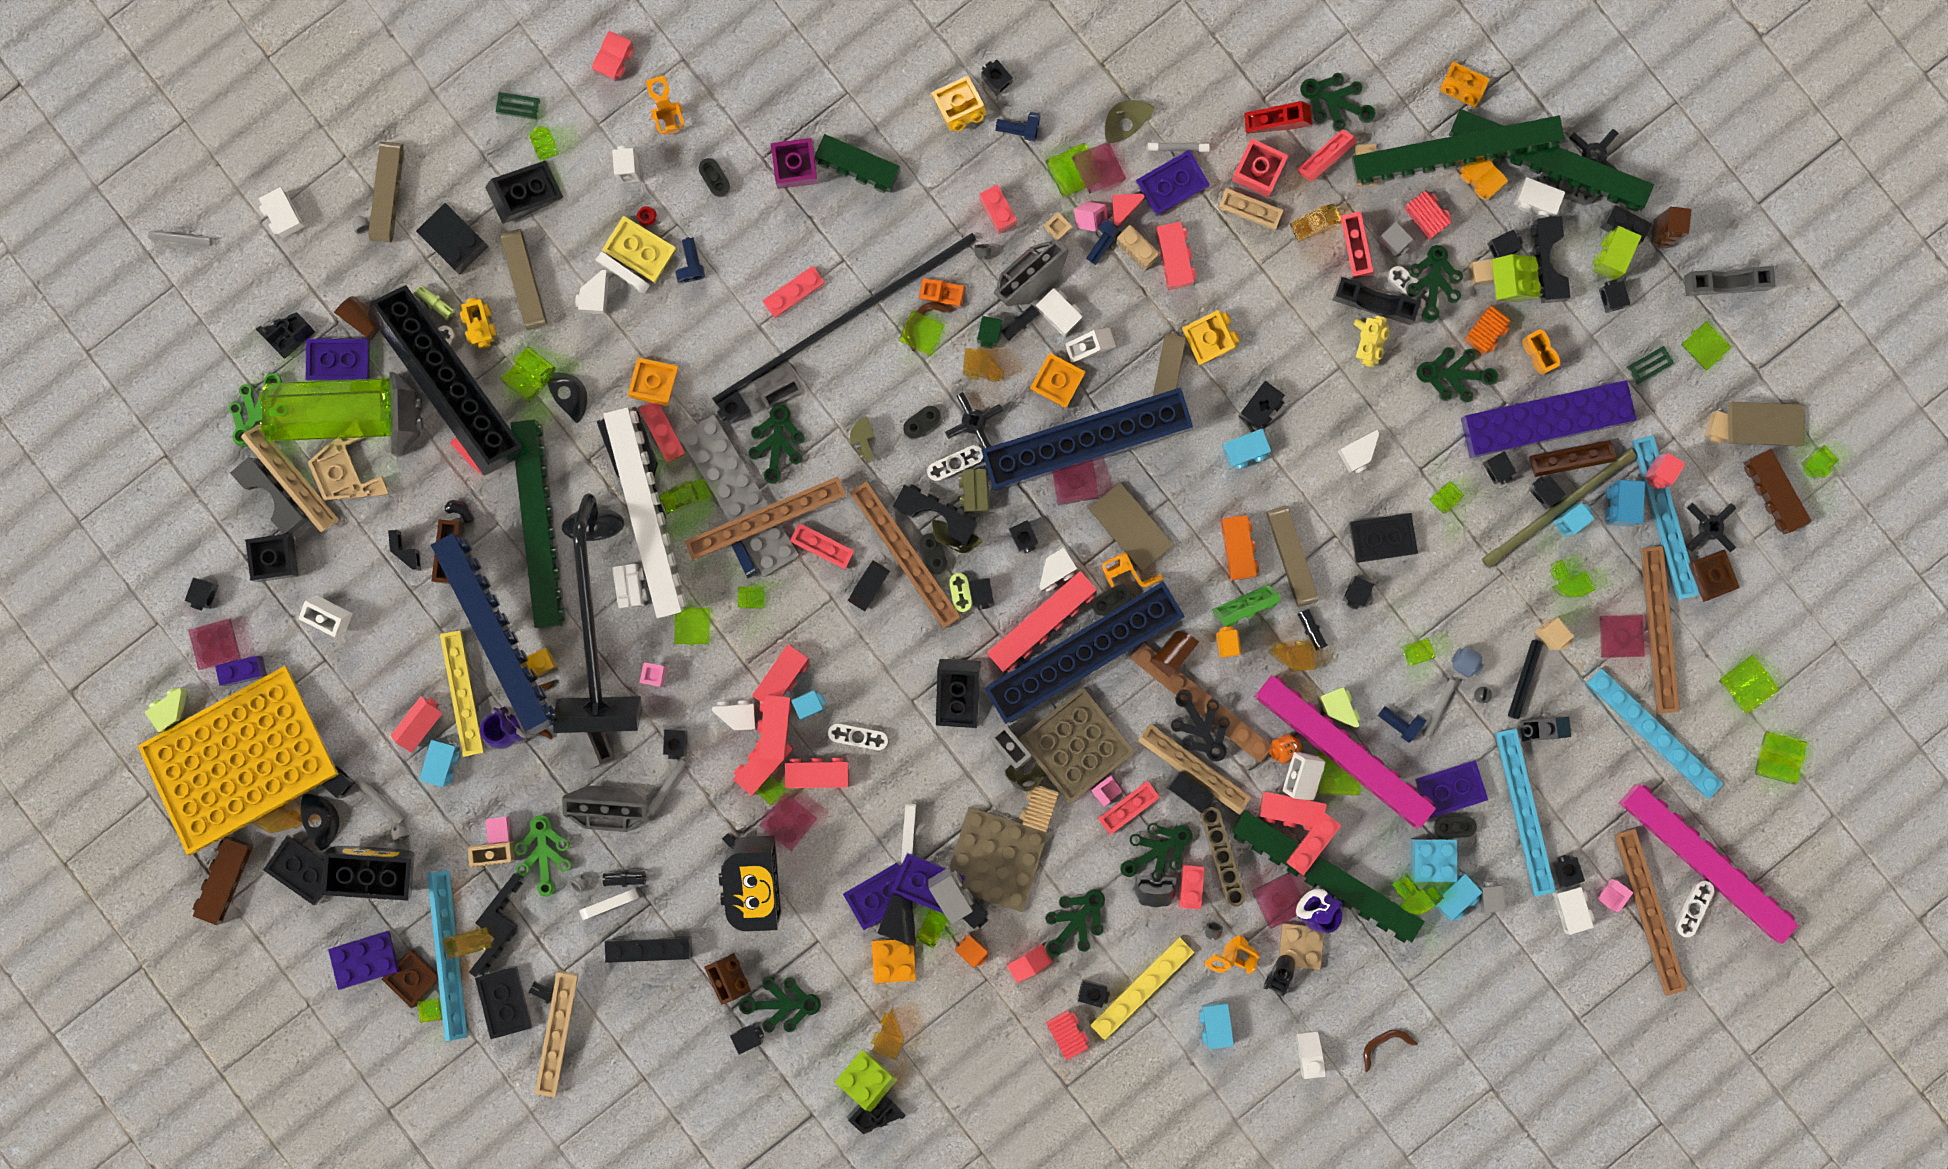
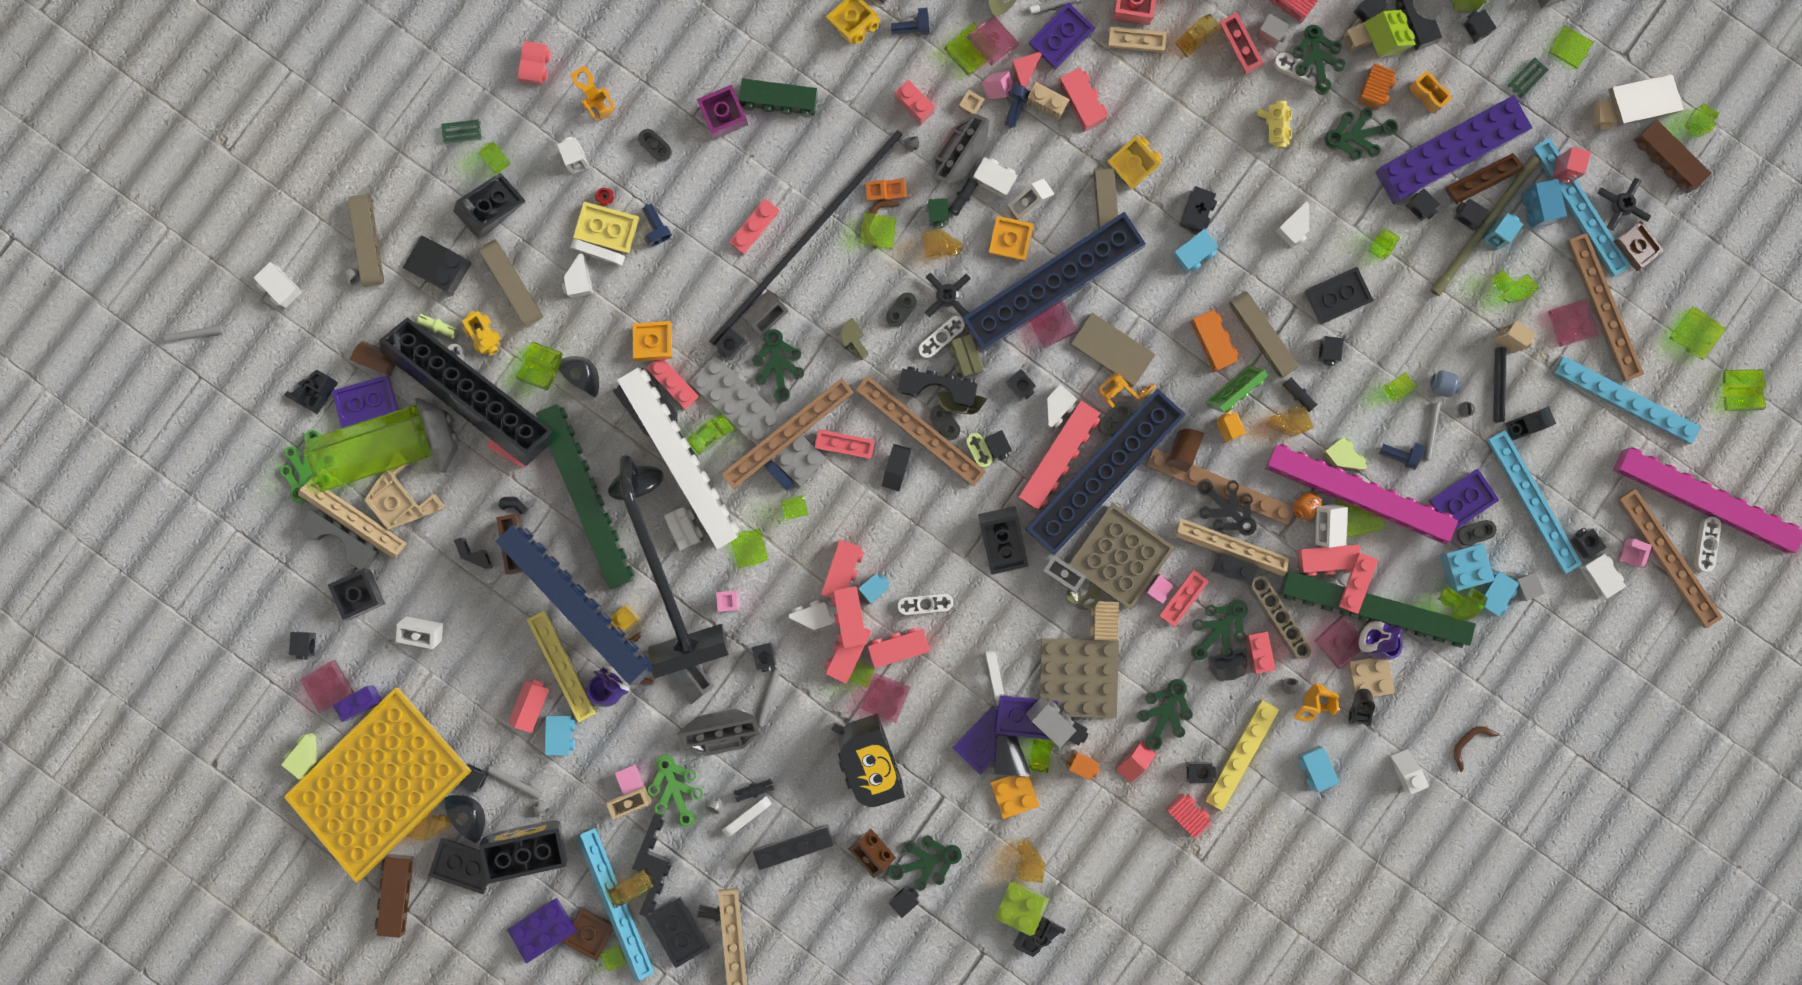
camera: 15 degrees left, 0 degrees up
(1389, 306) = (1256, 89): black arch -> none

